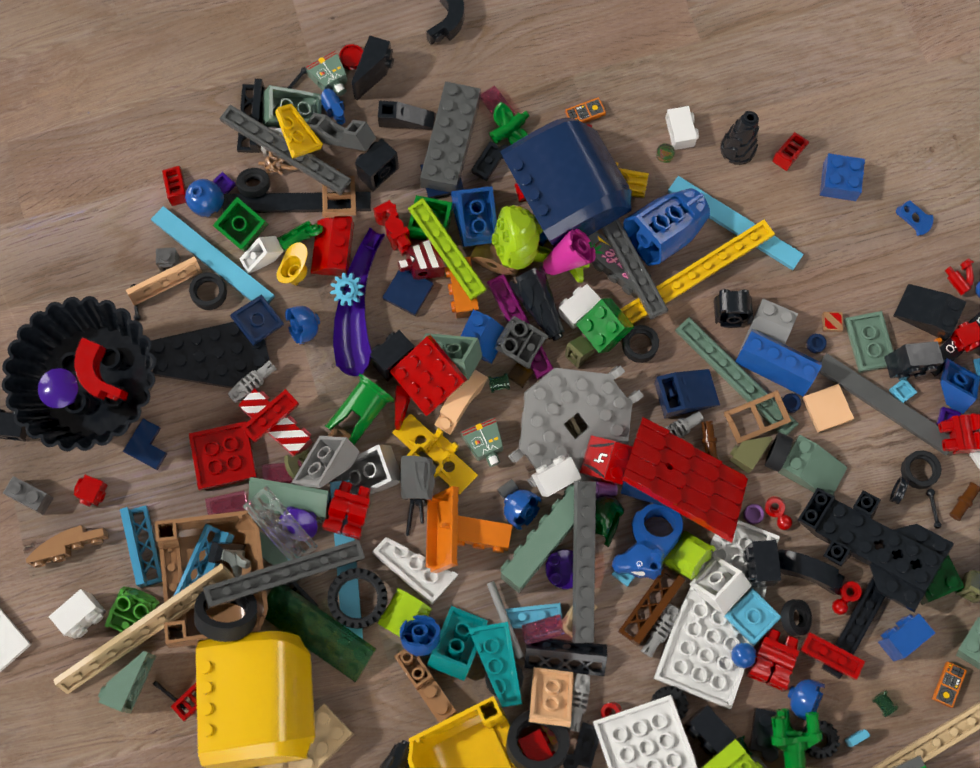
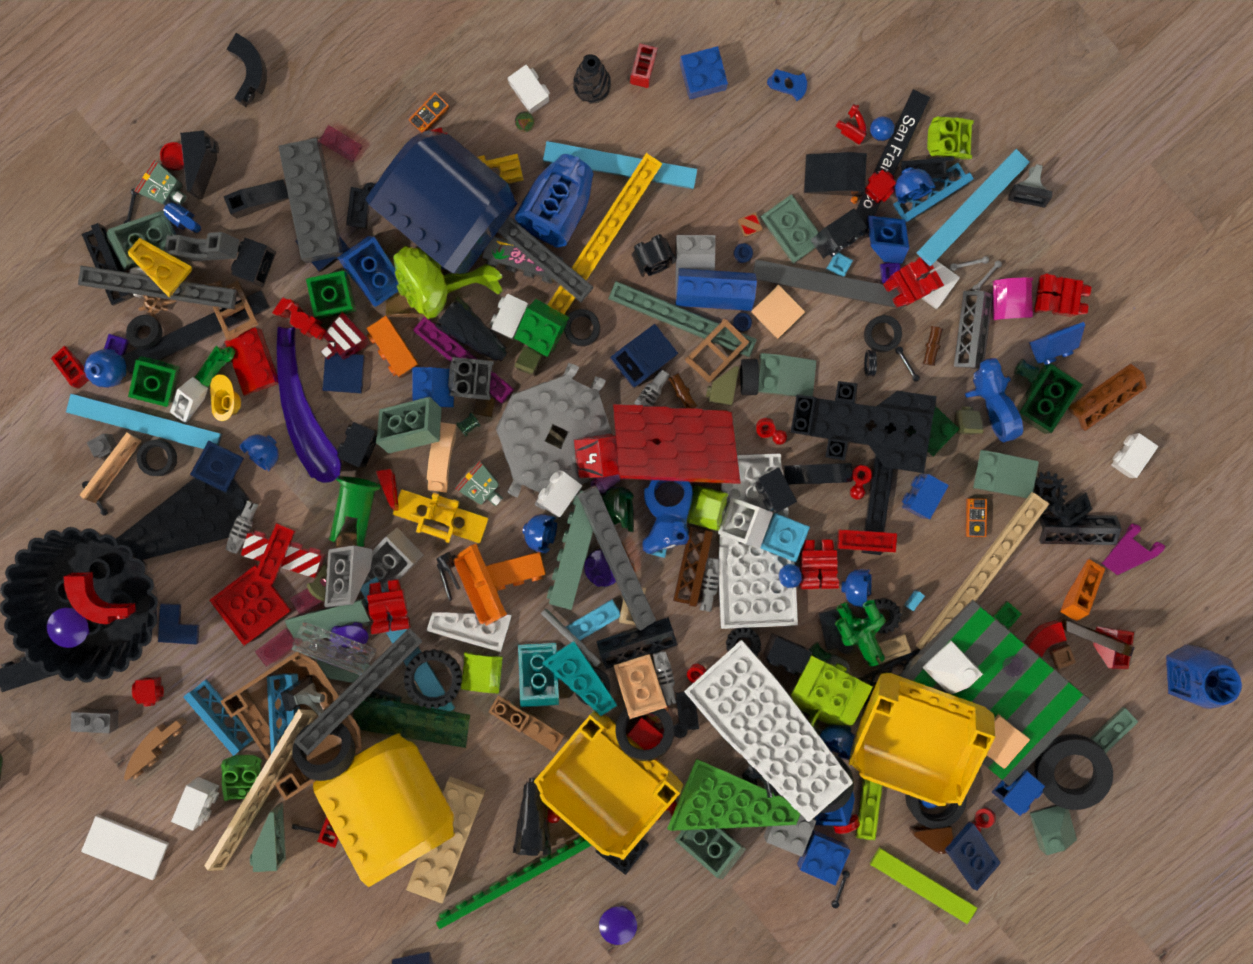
camera: 20 degrees left, 15 degrees up
(340, 292) = (288, 393): medium azure gear -> none
(417, 477) = (435, 551): dark grey slope -> none
(420, 635) = (502, 687): blue cylinder -> none
(428, 375) = (400, 453): red plate -> none
(447, 249) = (360, 320): lime tile -> none
(508, 124) = (362, 162): green plant -> none
(508, 488) = (521, 518): dark grey hinge -> none
(543, 629) = (607, 631): clear pink plate -> none
(570, 253) = (479, 274): dark pink cone -> none
(754, 514) = (749, 441): medium lavender tile -> none
(805, 617) = (831, 518): black tyre -> none
(885, 703) = (927, 559): clear green bush -> none

